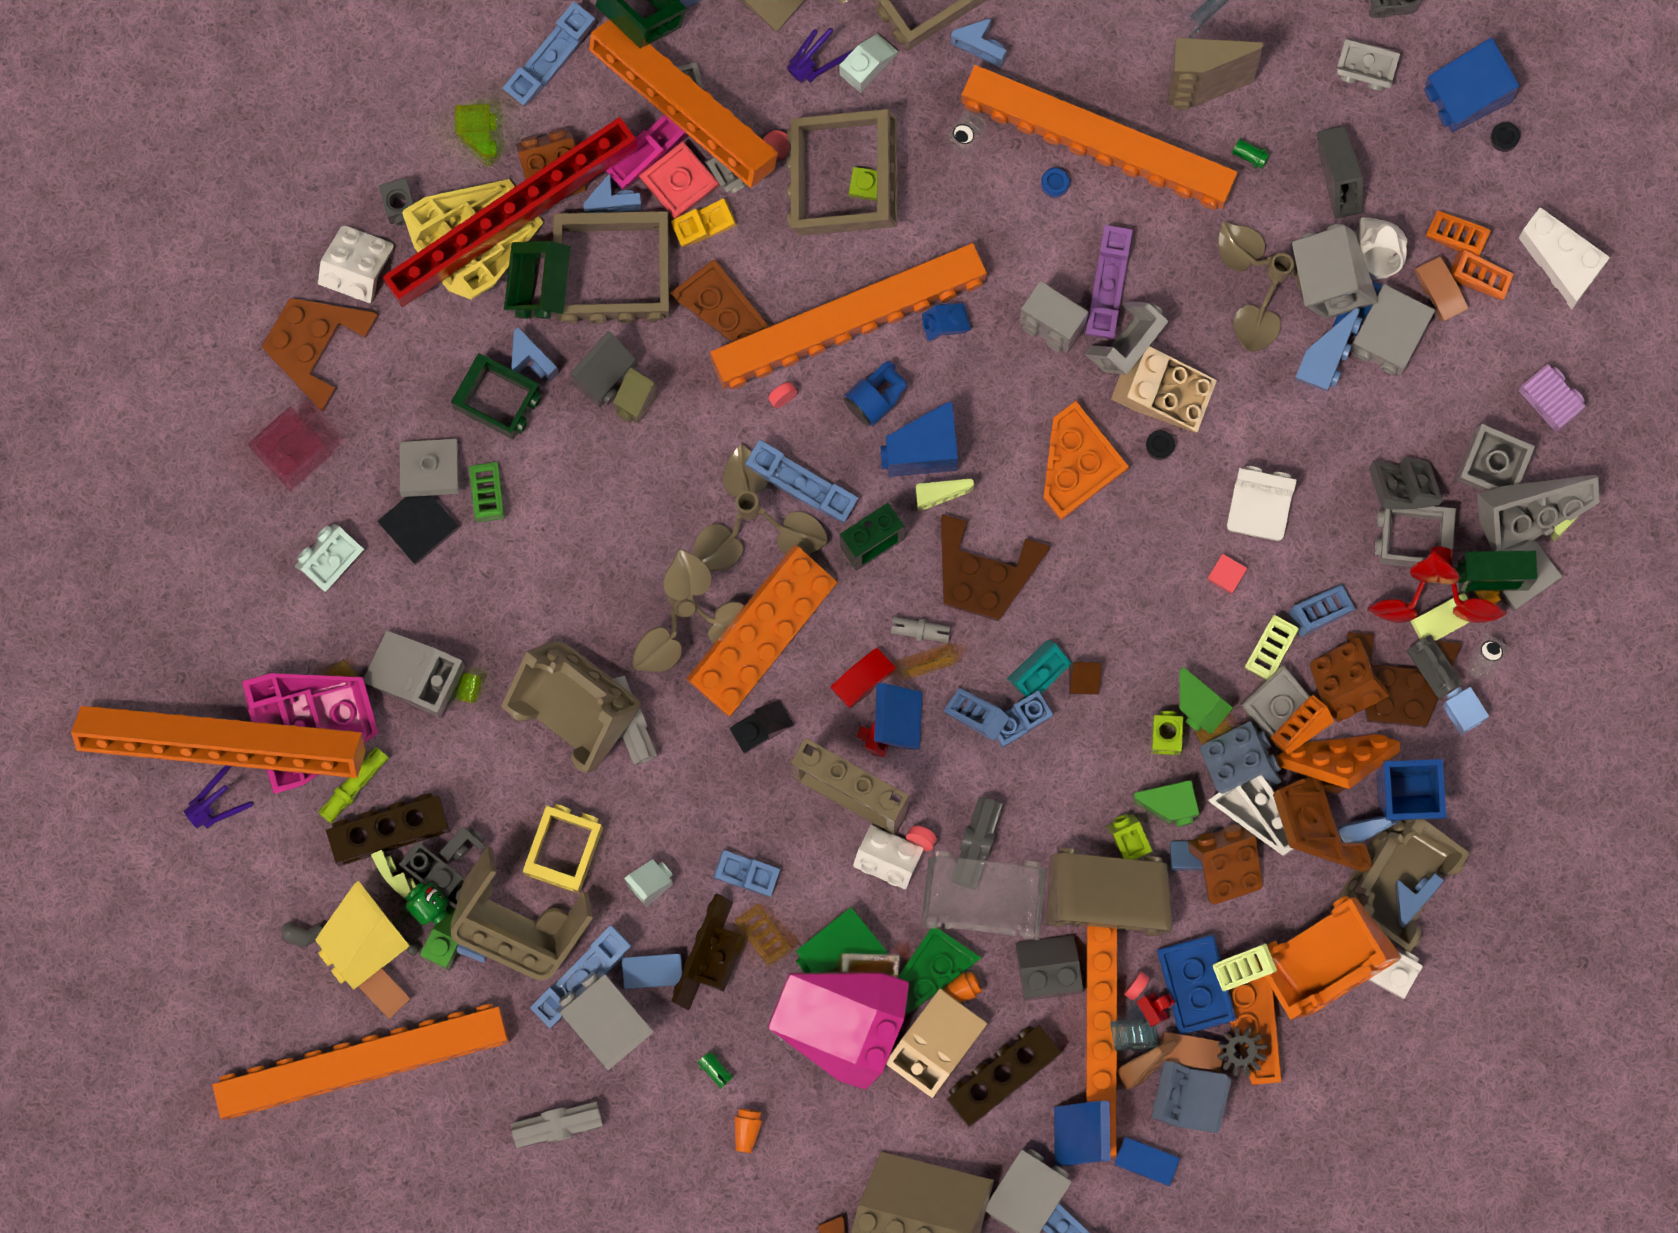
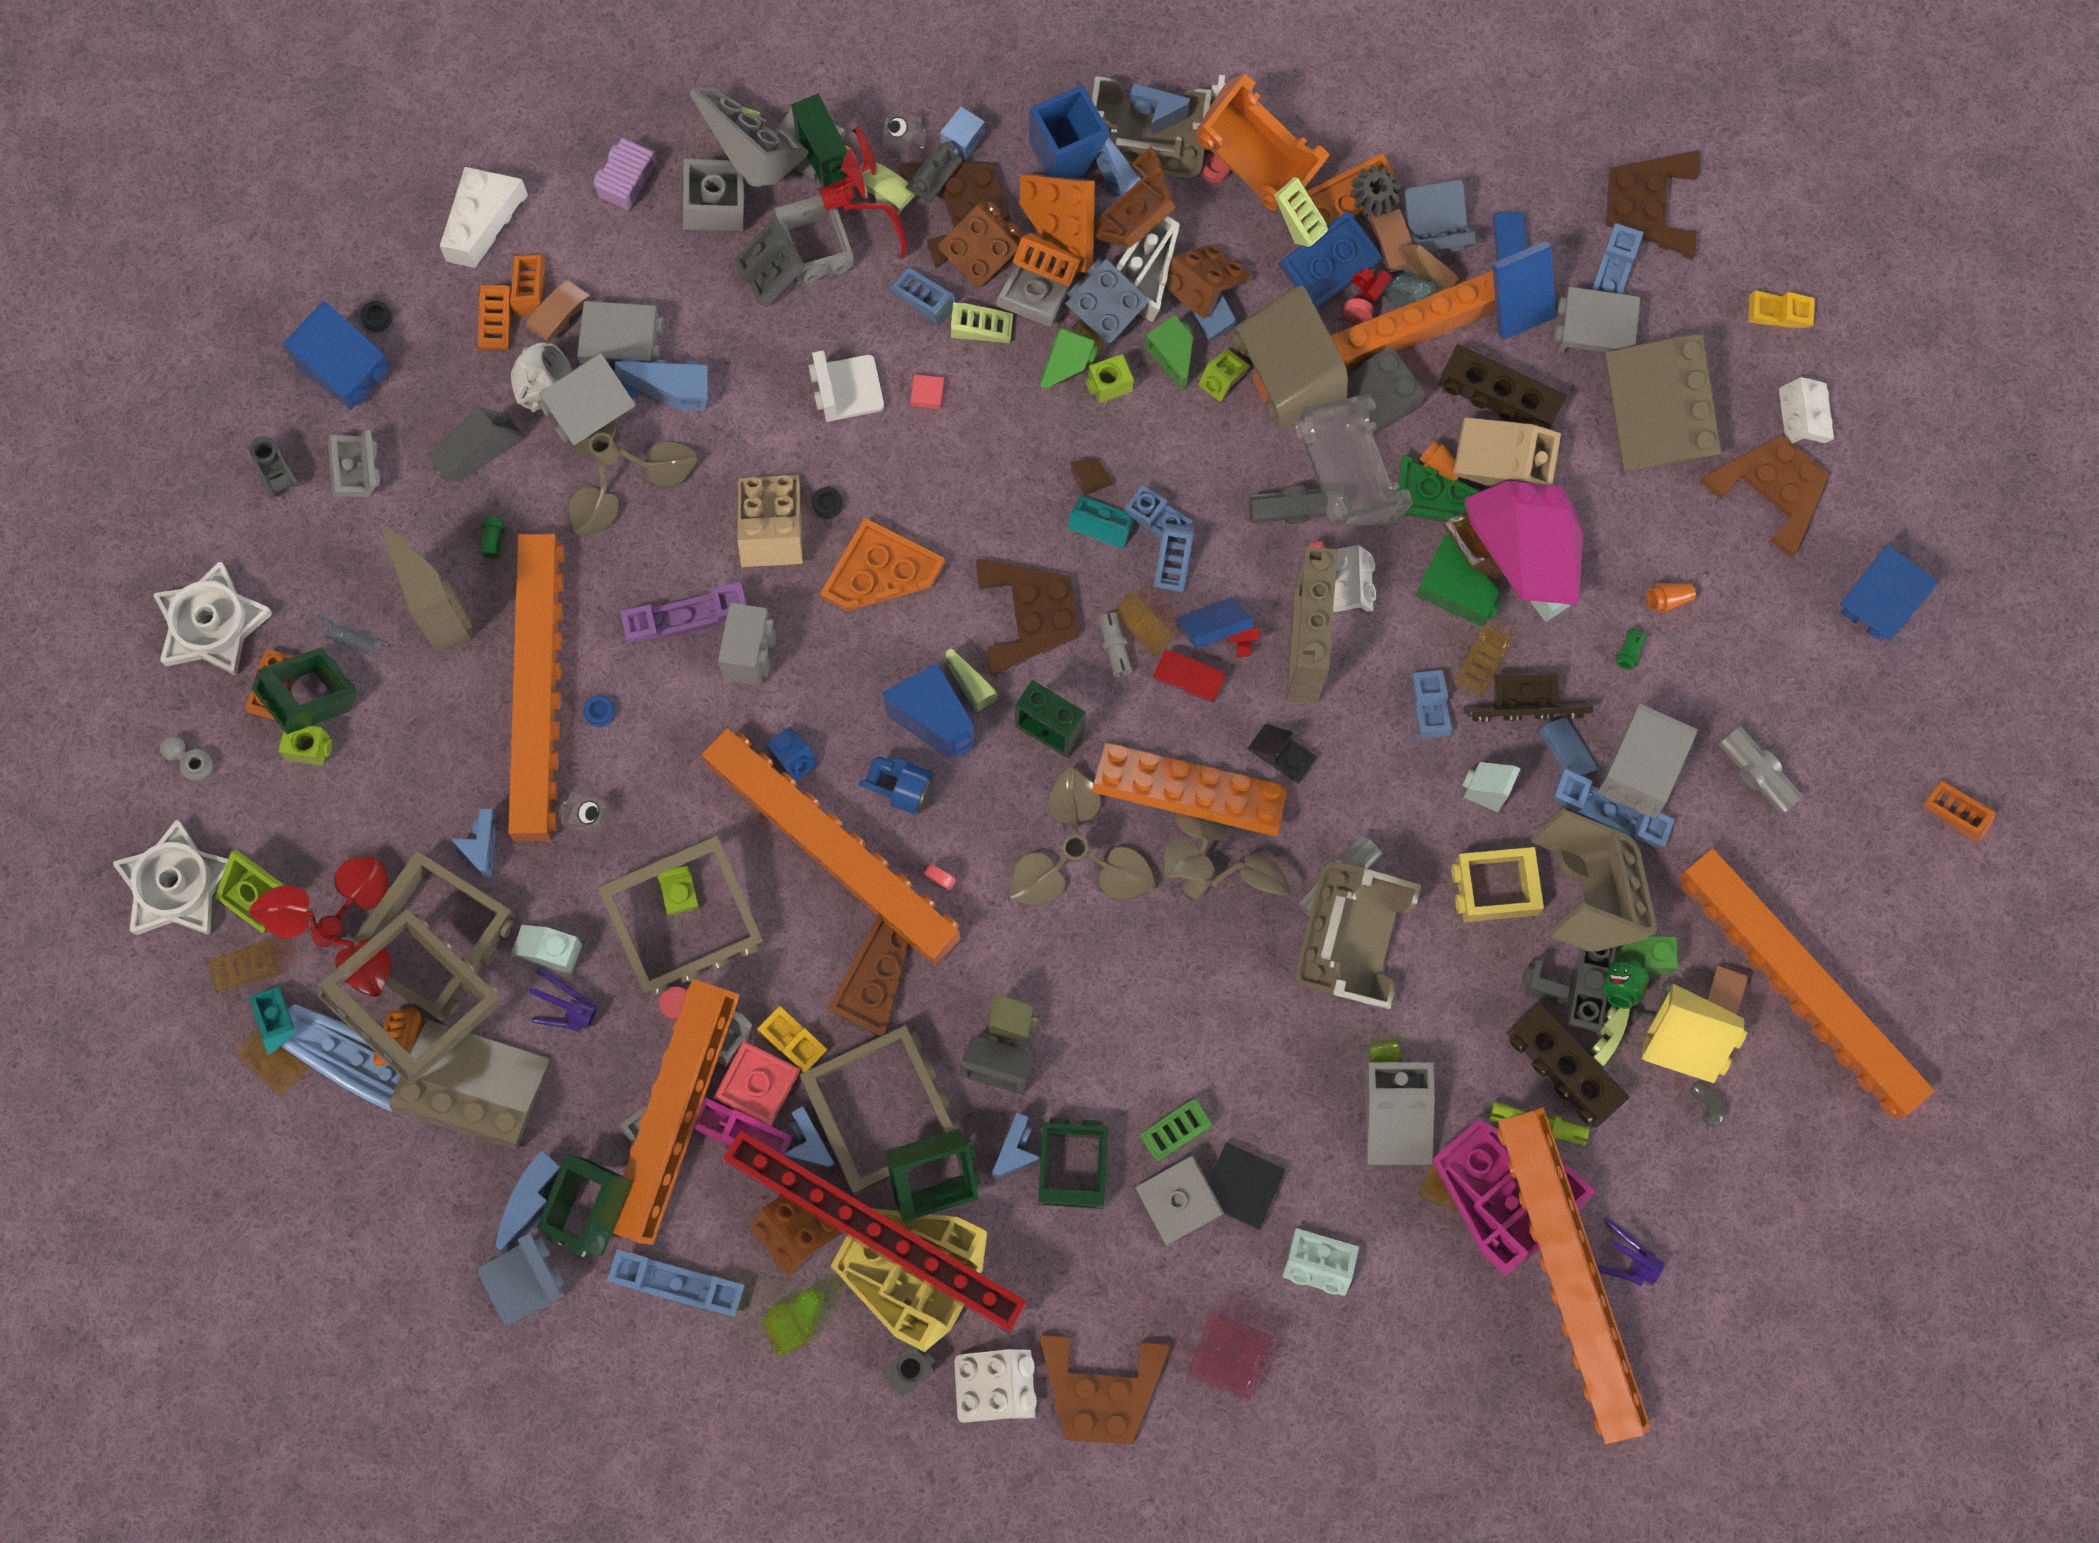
camera: 120 degrees left, 5 degrees down
(800, 482) = (1022, 817): medium blue slope -> none
(1133, 340) = (736, 558): light grey panel -> none

